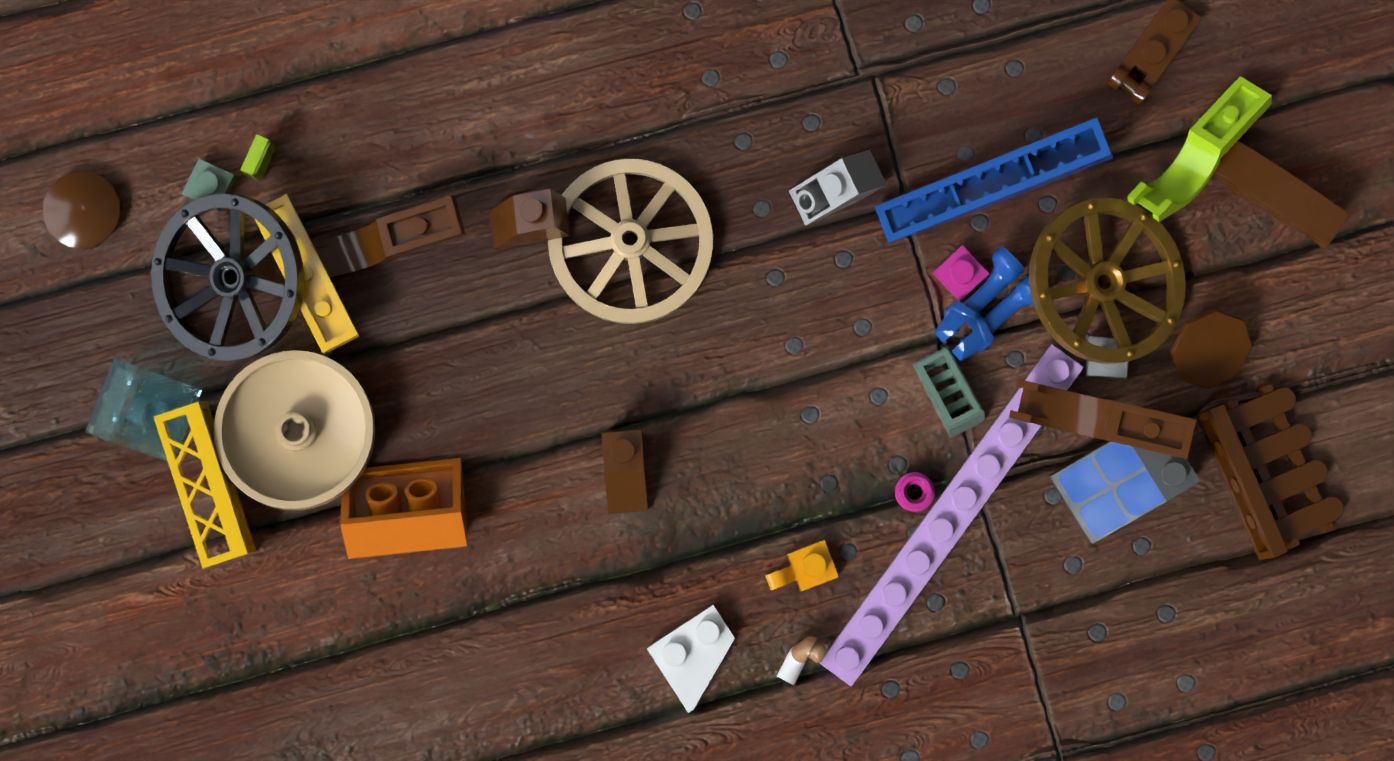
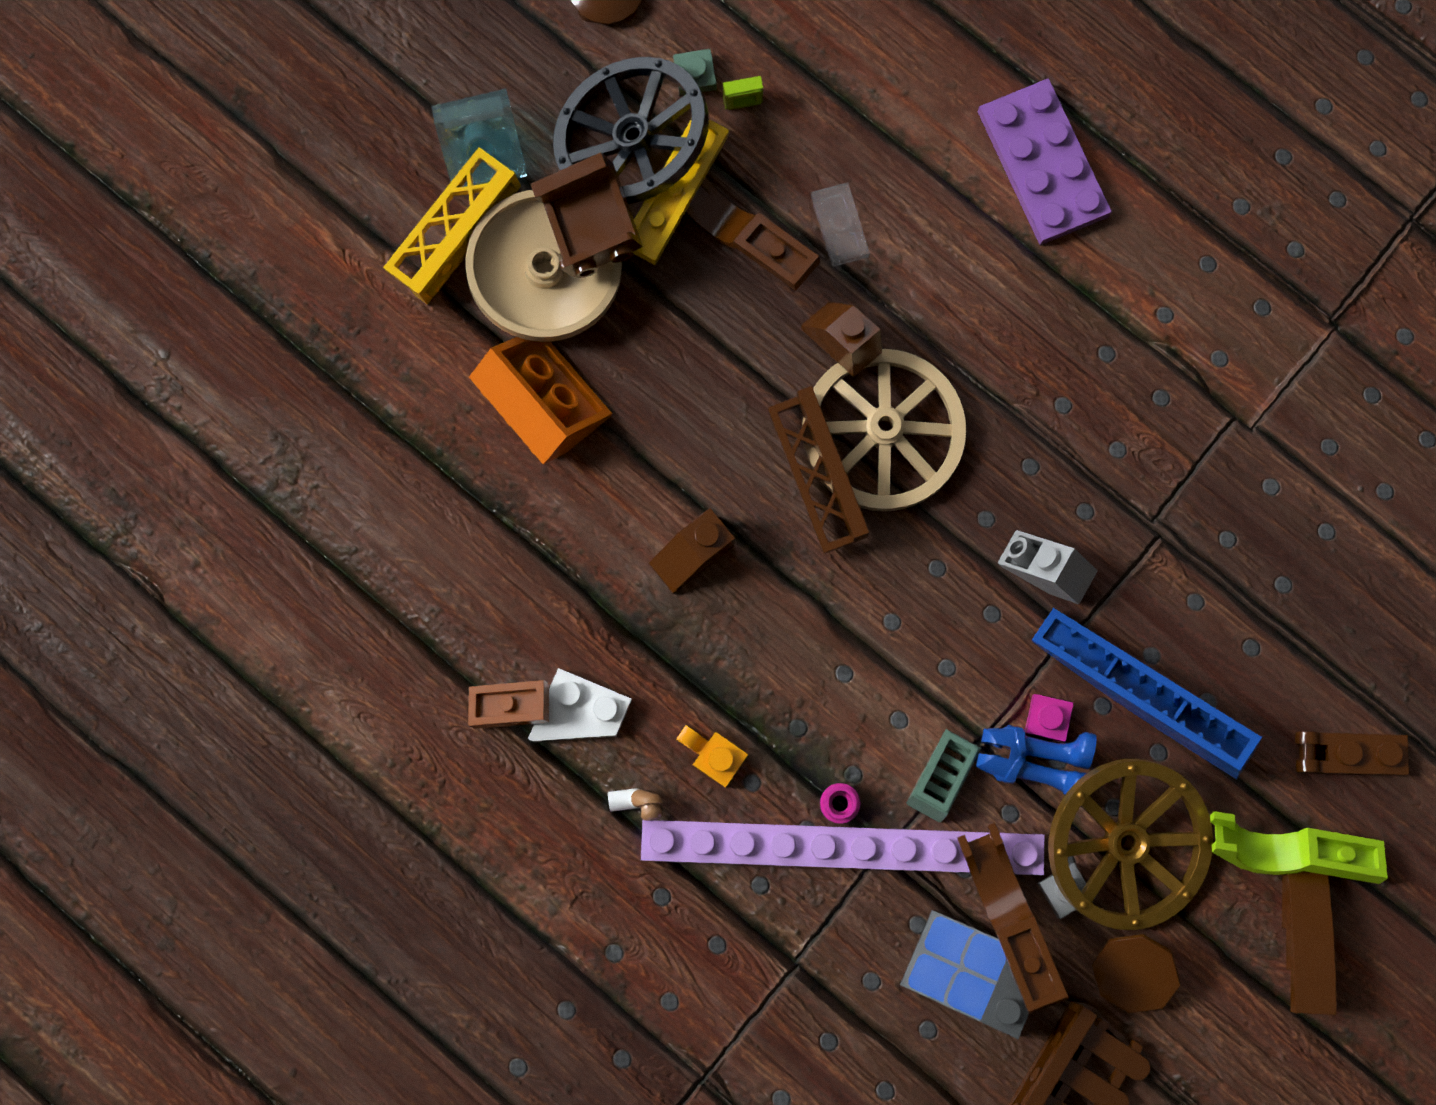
camera: 55 degrees right, 5 degrees down
(283, 365) = (588, 215): none -> reddish brown panel
(429, 155) = (840, 224): none -> clear plate
(635, 306) = (832, 465): none -> reddish brown fence
(650, 710) = (508, 704): none -> dark orange plate

